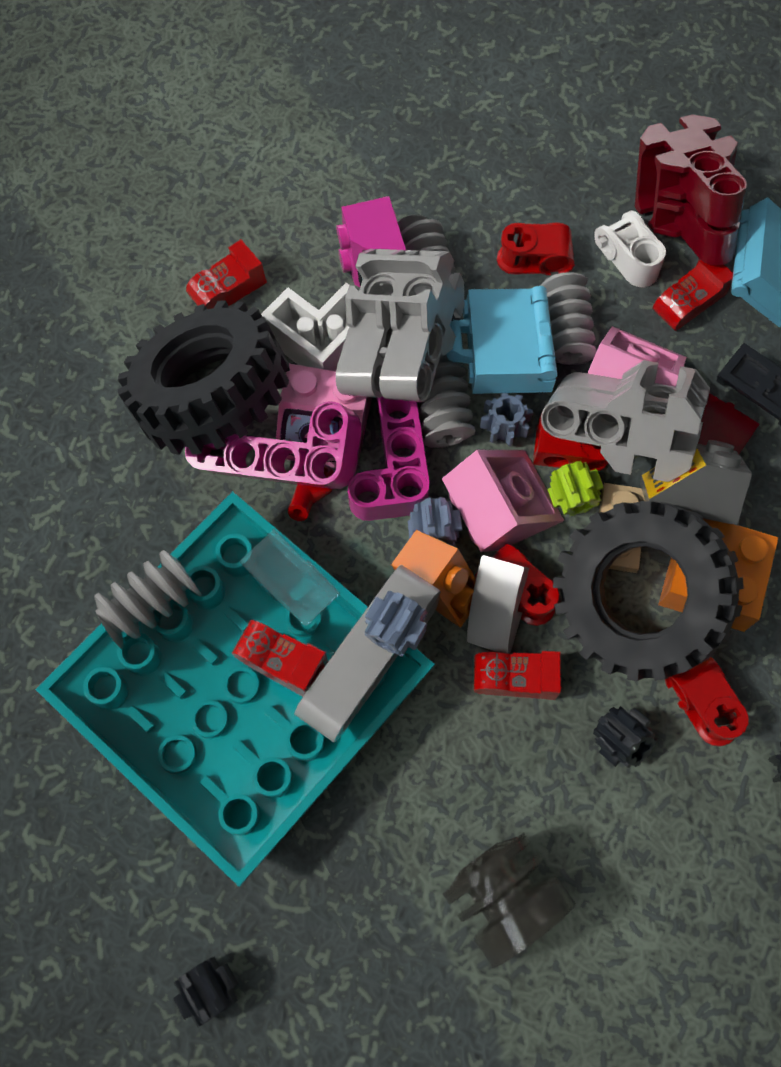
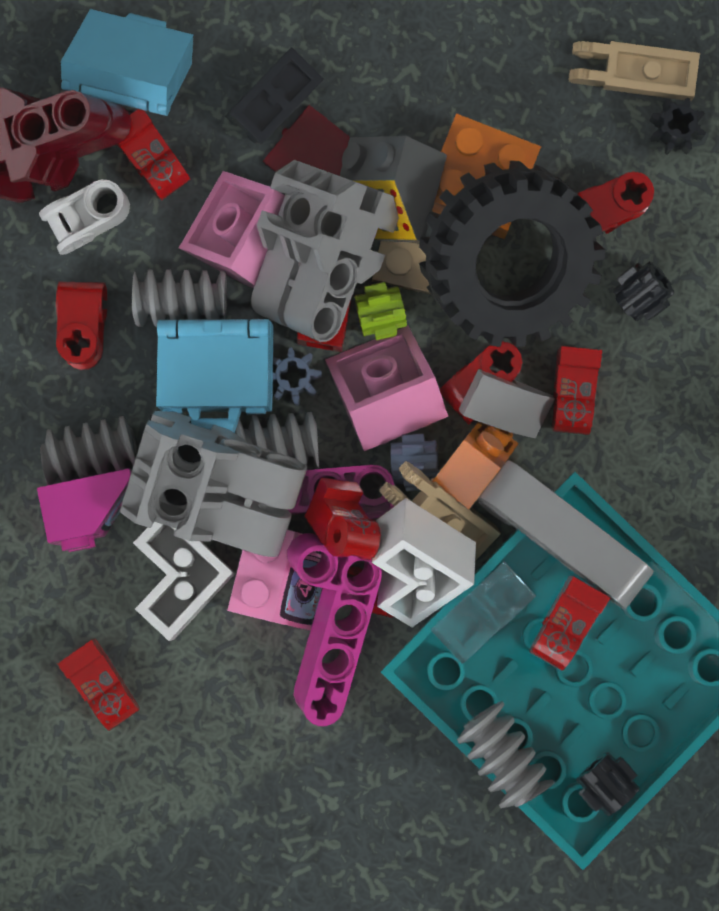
camera: 90 degrees left, 15 degrees up
(115, 702) = (608, 784): none -> black gear
(219, 402) = (287, 677): black tyre -> none
(341, 521) = (420, 563): none -> white brick
(374, 444) = (342, 521): none -> red leg
(384, 541) = (445, 507): none -> tan hinge
(395, 623) = (556, 505): sand blue gear -> none

